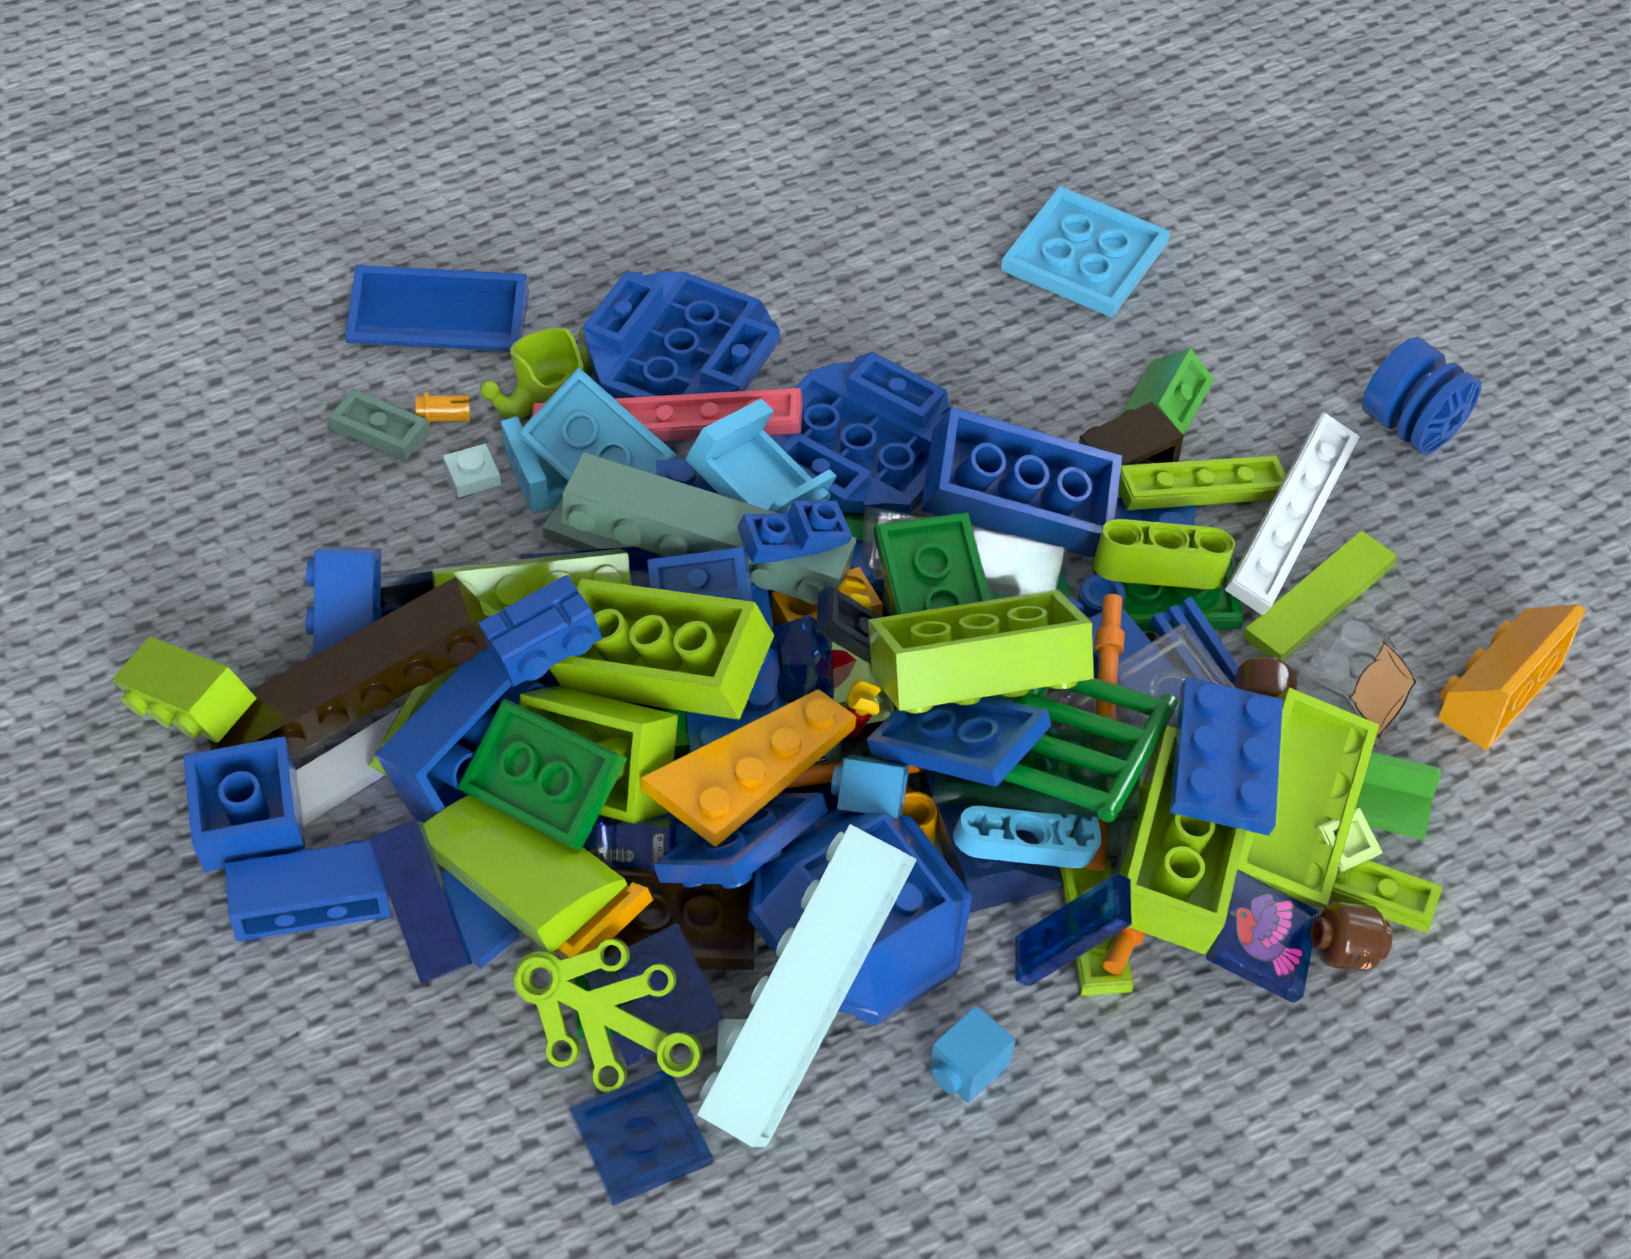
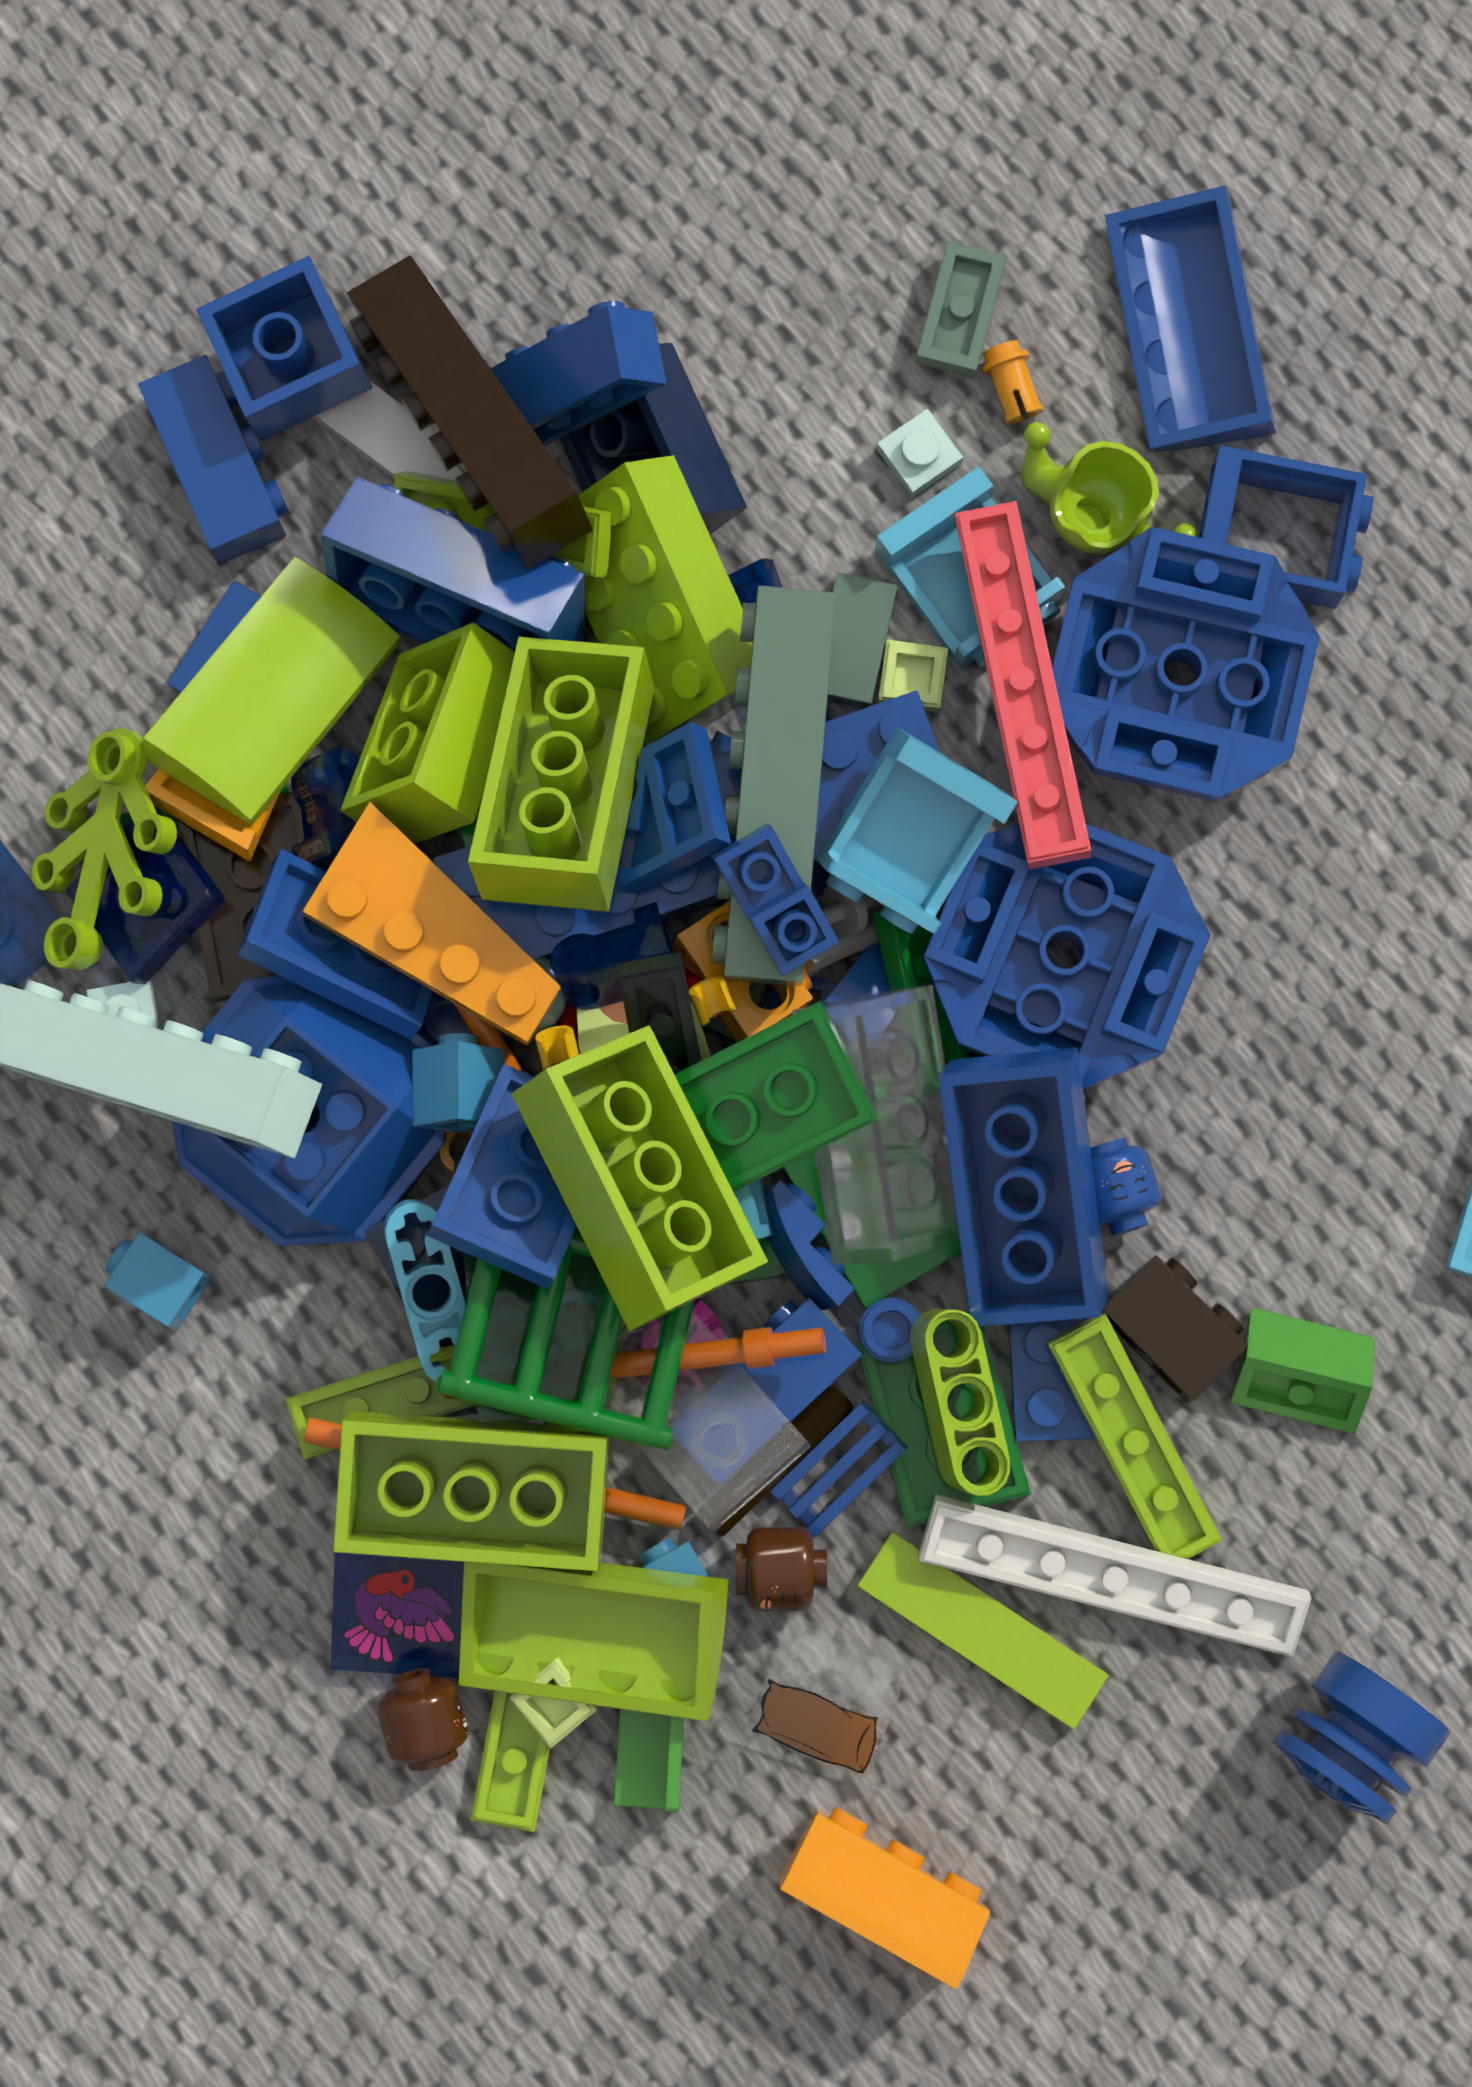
camera: 80 degrees right, 30 degrees up
(183, 690) = (432, 218): lime brick -> none
(420, 901) = (209, 592): clear blue tile -> none
(540, 631) = (525, 621): blue brick -> none
(542, 774) = (372, 682): green tile -> none
(587, 255) = (1301, 478): none -> blue window
(591, 421) = (950, 606): medium azure tile -> none
(1073, 929) = (316, 1371): clear blue tile -> none
(1227, 756) = (575, 1522): blue plate -> none

